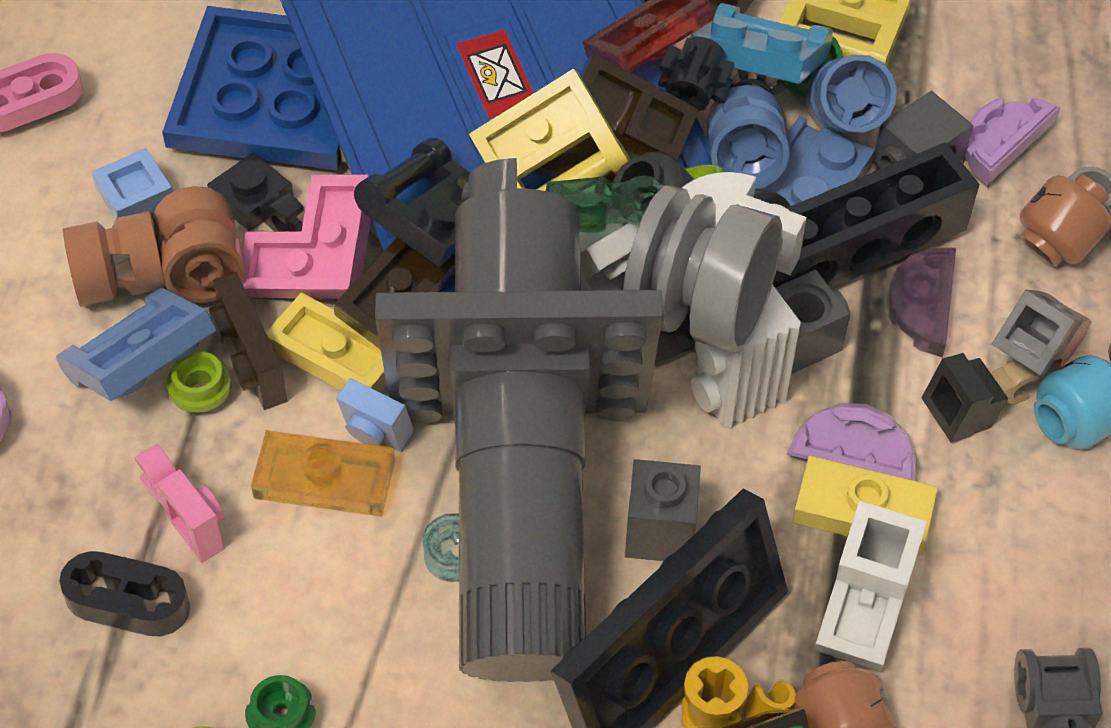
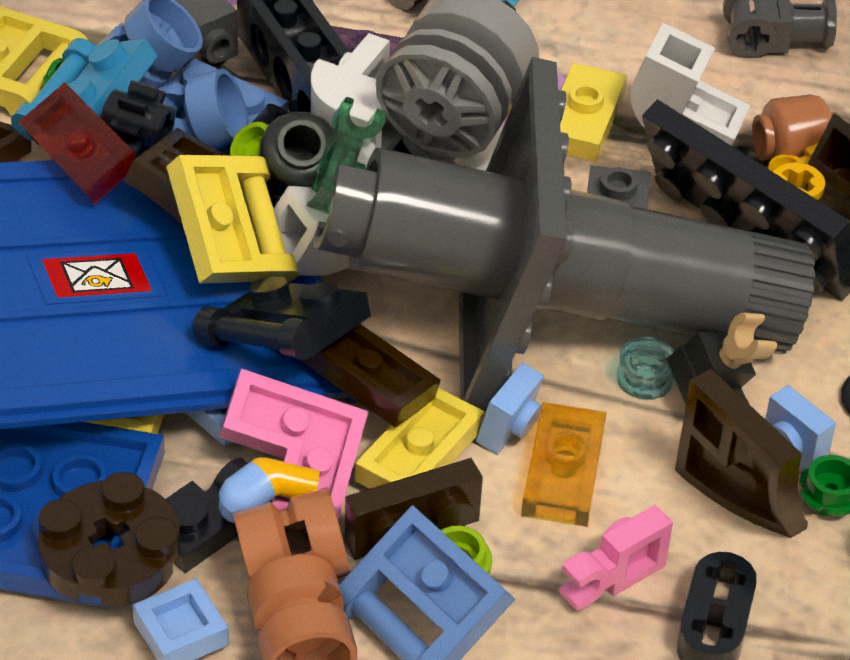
camera: 90 degrees left, 10 degrees down
(197, 94) = (102, 509): none -> dark brown plate
(259, 216) = (262, 482): none -> arm
(270, 595) = (739, 457): none -> dark brown plate
(345, 673) = (801, 424): none -> light blue plate
(421, 592) = (724, 353): none -> piece

